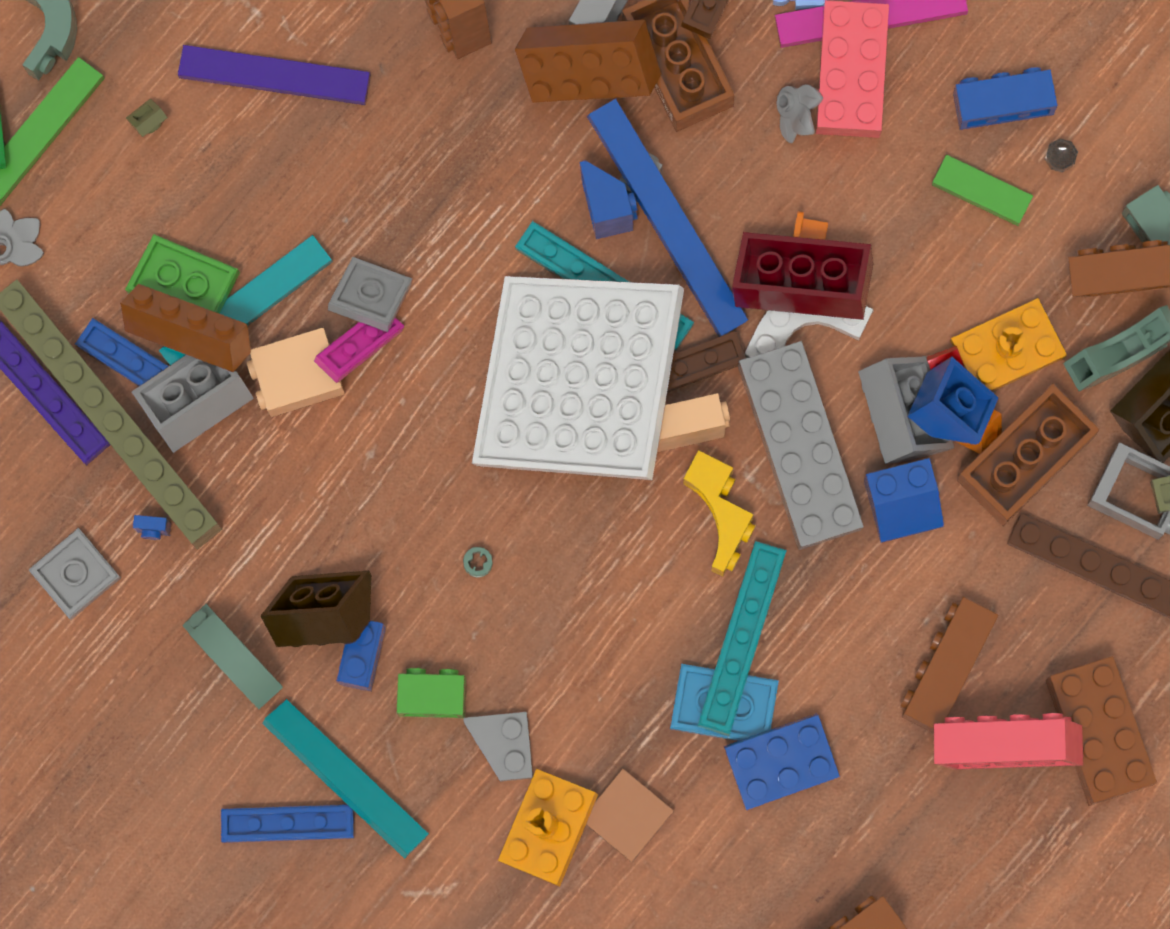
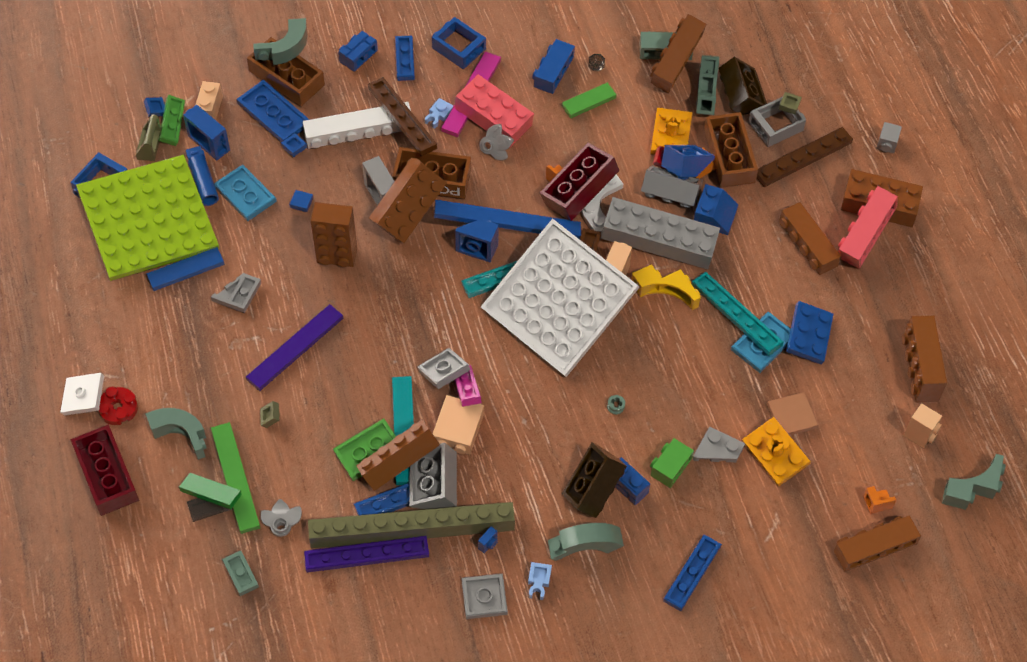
camera: 65 degrees left, 20 degrees down
(145, 627) = (539, 578): none -> light blue plate
(345, 778) = (687, 529): teal tile -> none

